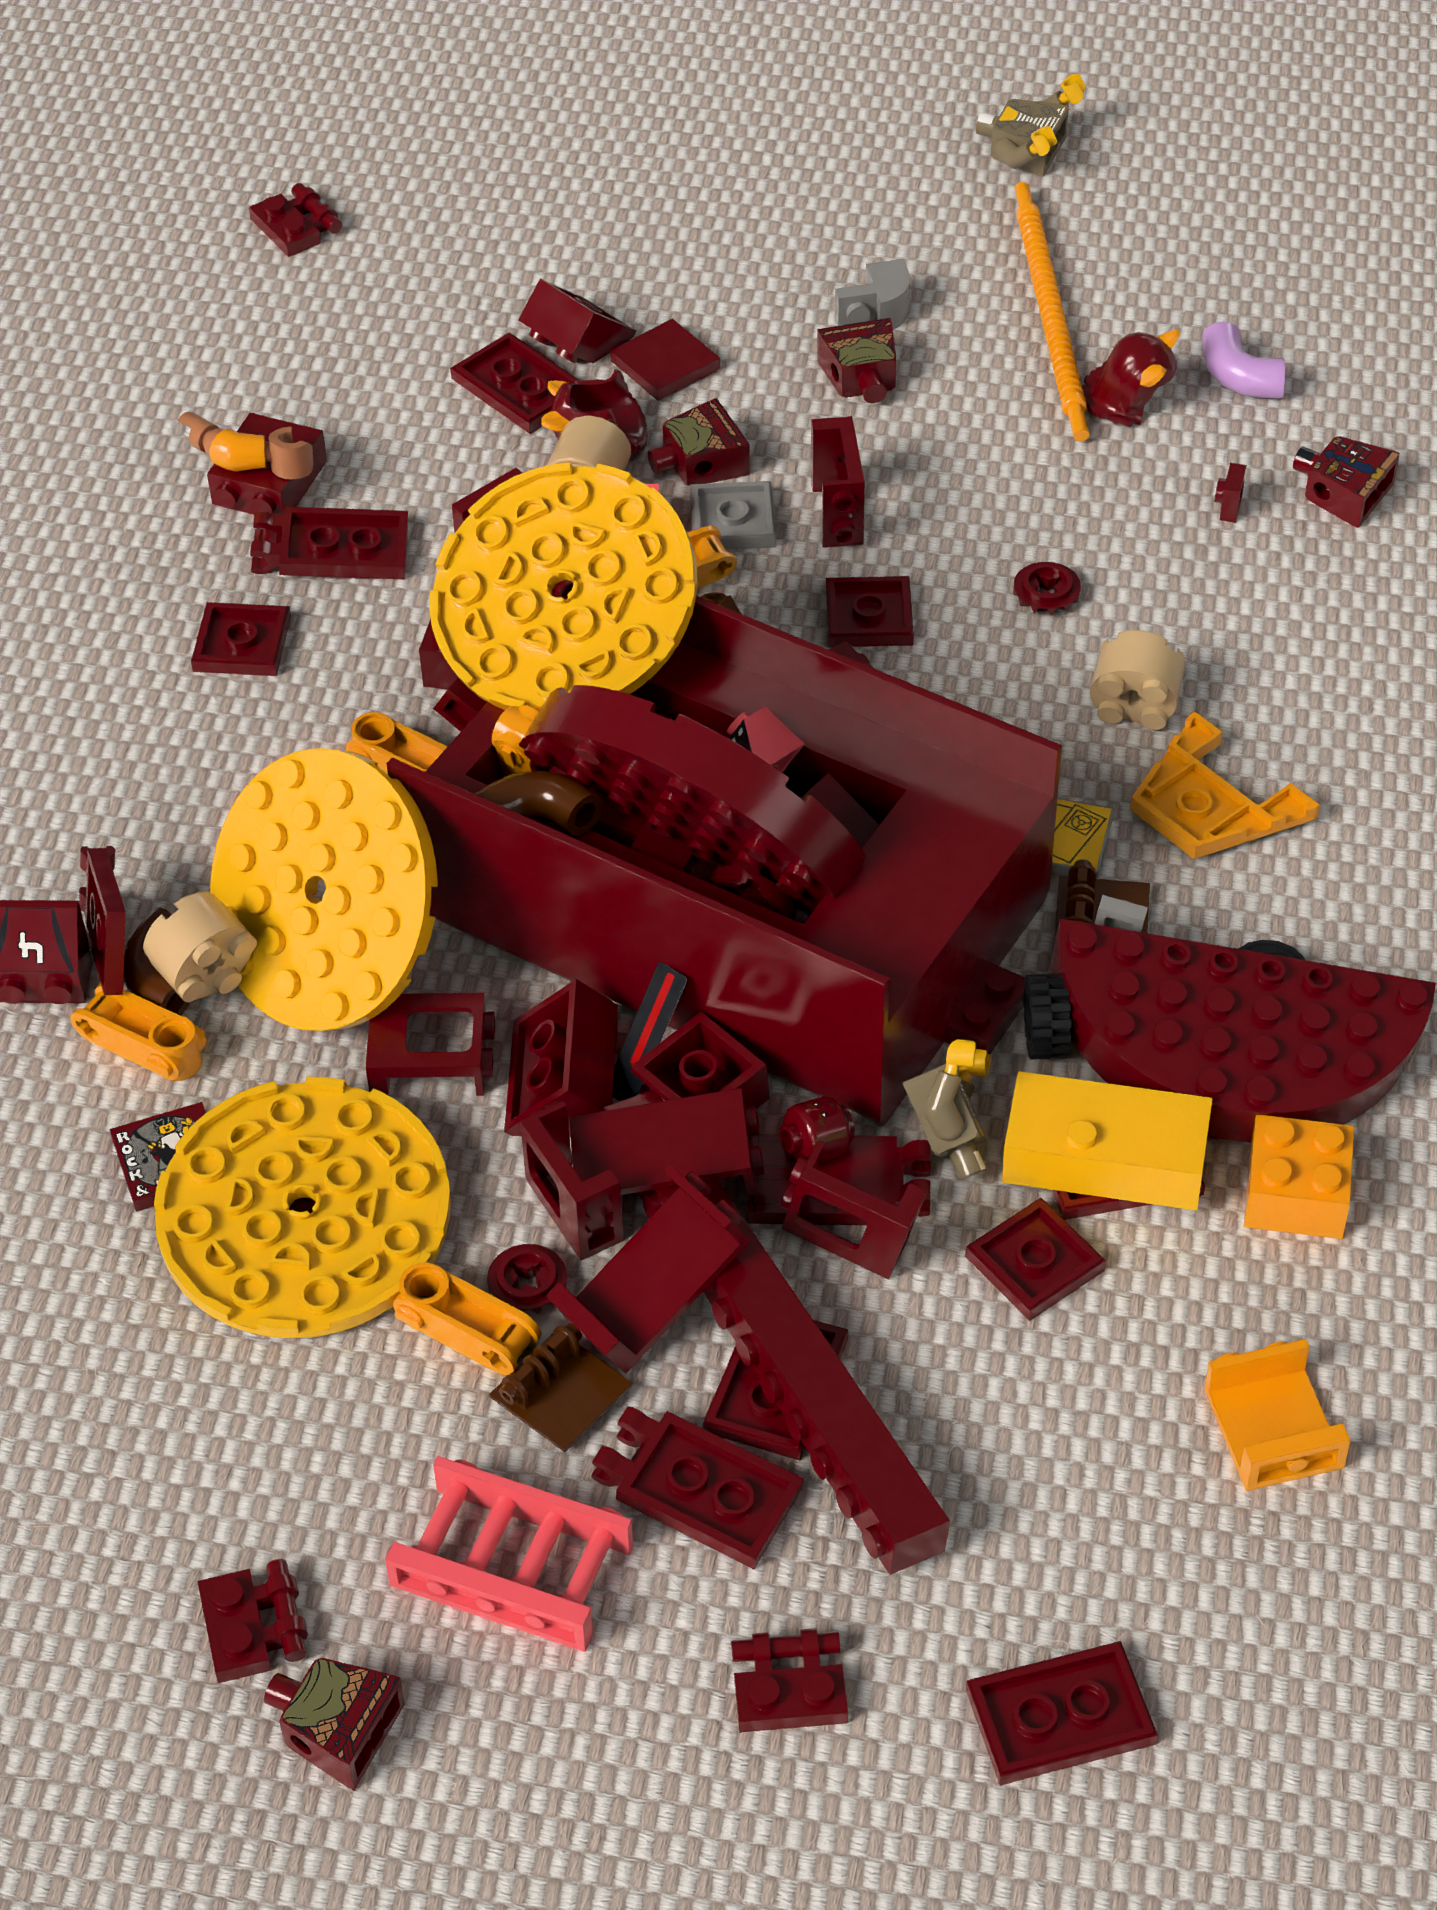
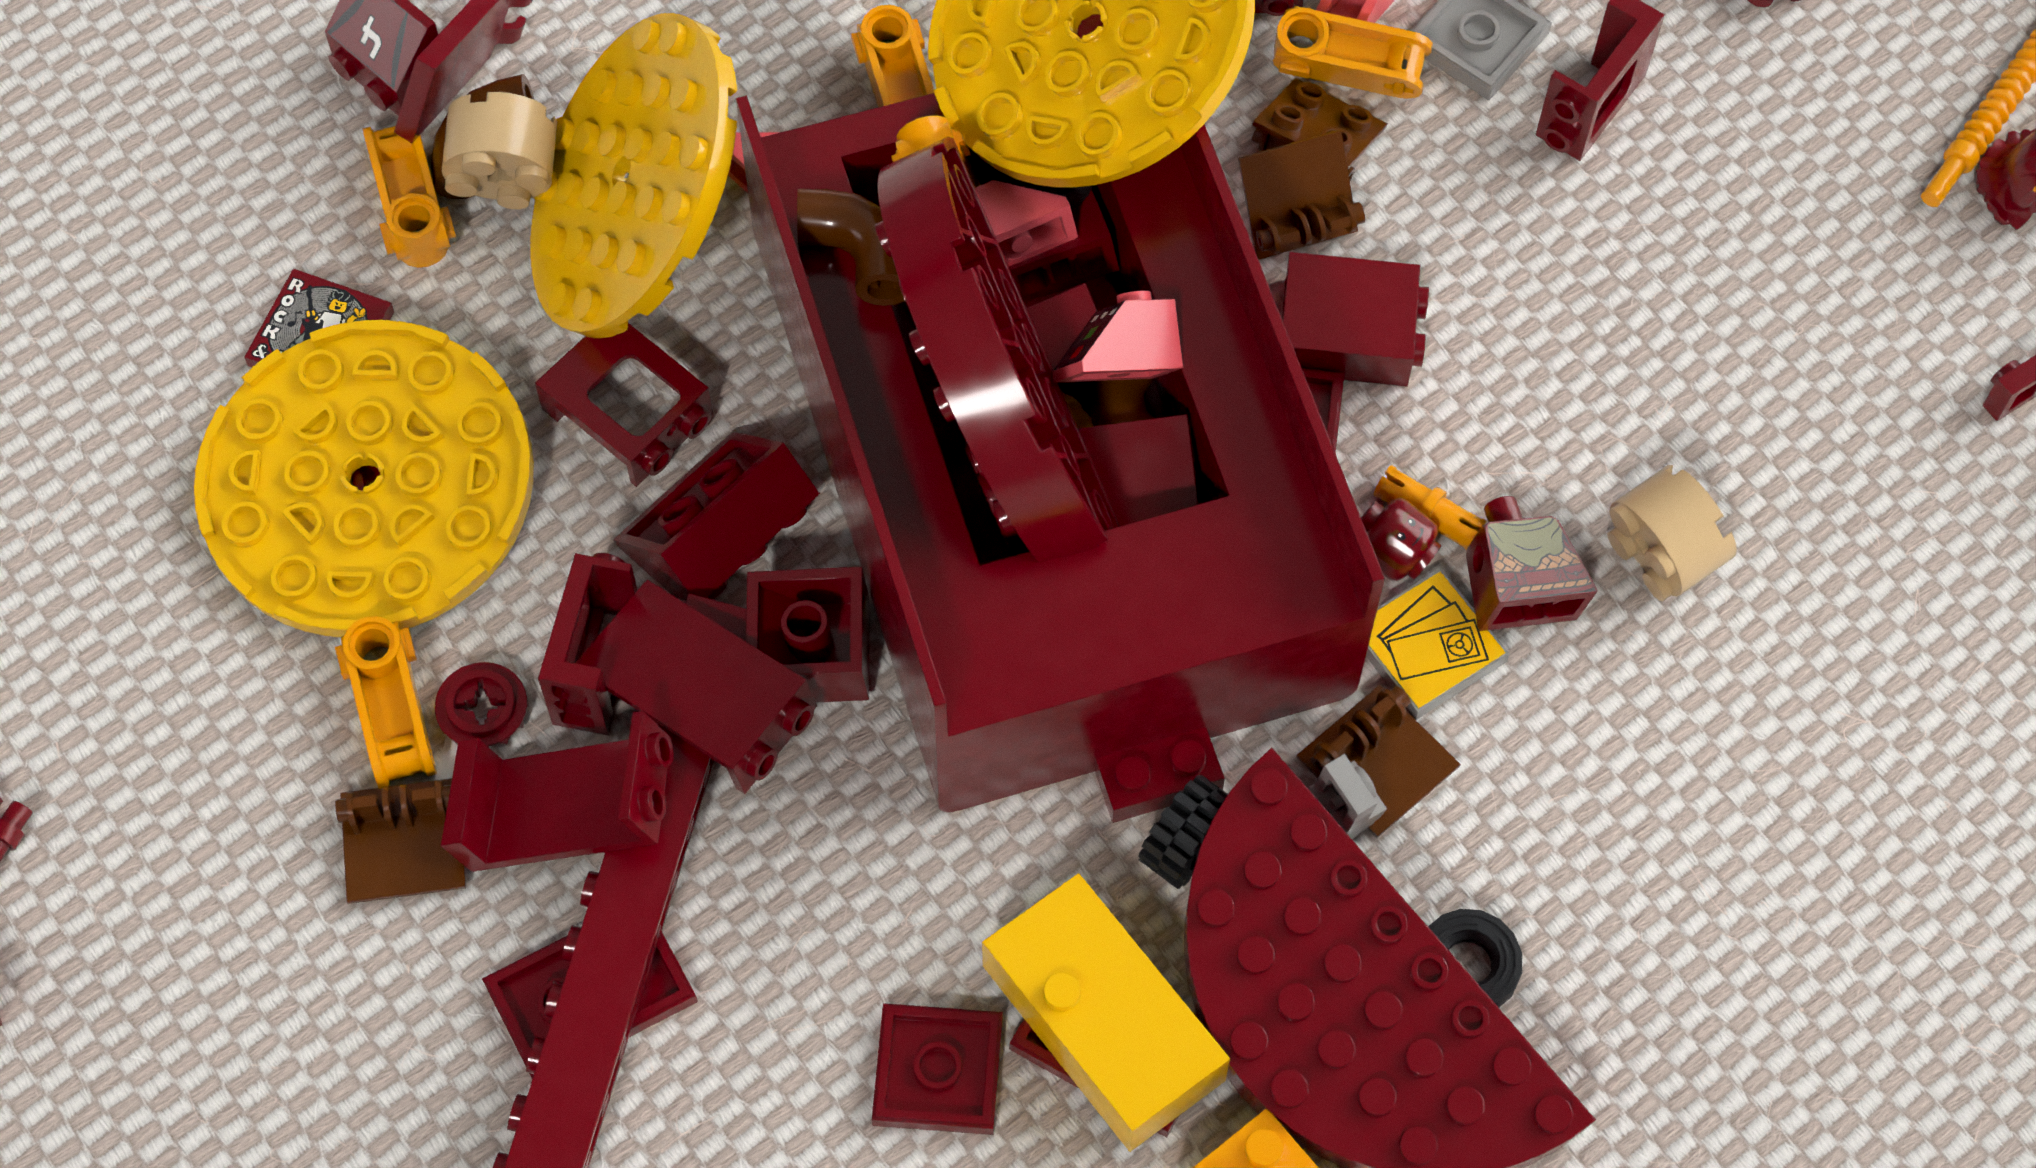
camera: 40 degrees right, 15 degrees up
(511, 1600) = (164, 1010): coral fence -> none
(647, 1028) = (806, 540): black sticker -> none
(699, 1484) = (420, 1039): dark red tile -> none
(814, 1121) = (851, 775): dark red head -> none
(869, 611) = (1502, 243): dark red tile -> none
(869, 1164) = (841, 832): dark red tile -> none
(886, 1224) = (800, 943): dark red window -> none
(945, 1106) = (988, 854): dark tan torso -> none
(1049, 576) = (1727, 342): dark red gear -> none
(1090, 756) = (1525, 570): none -> torso
(1201, 808) = (1596, 719): light orange wing -> none

